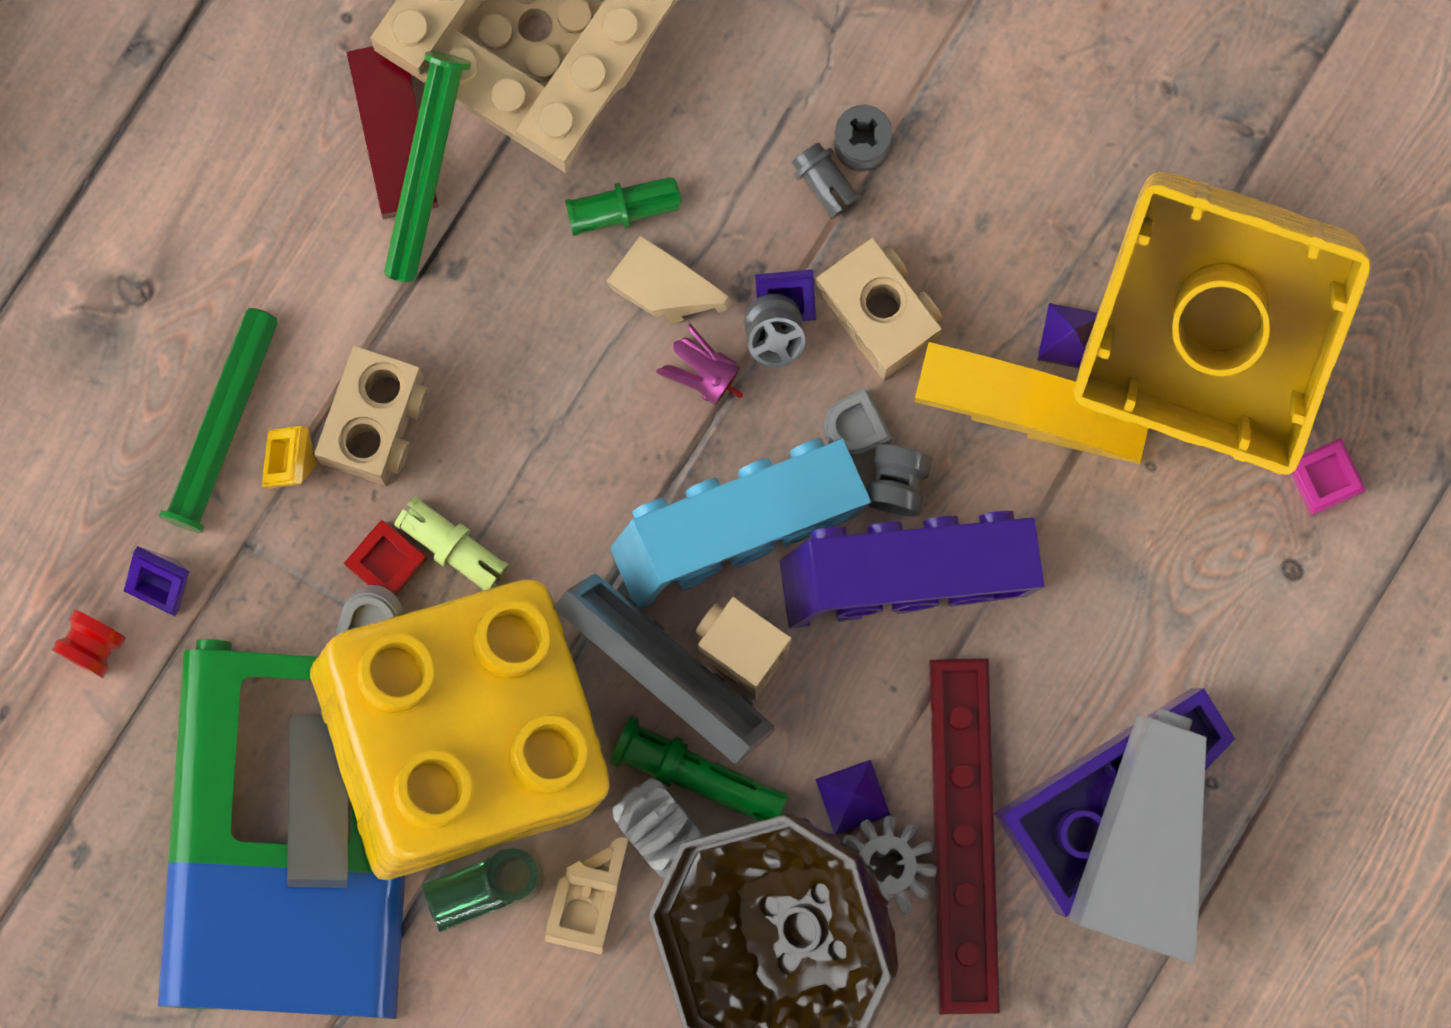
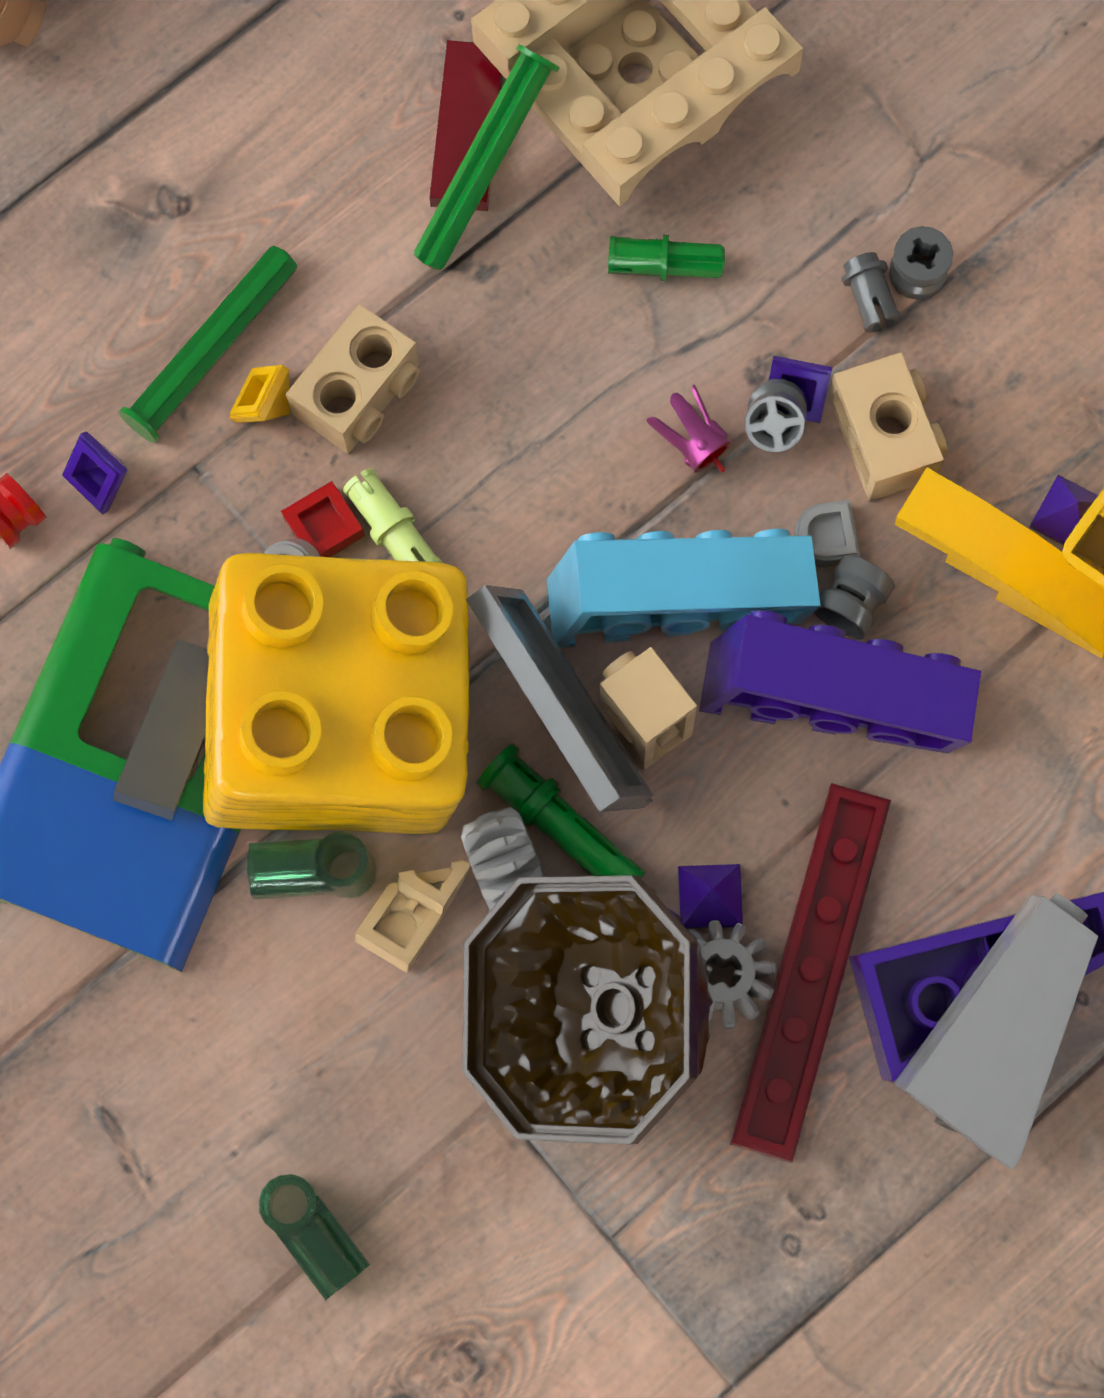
camera: 20 degrees right, 5 degrees down
(664, 284) = (682, 343): tan slope -> none

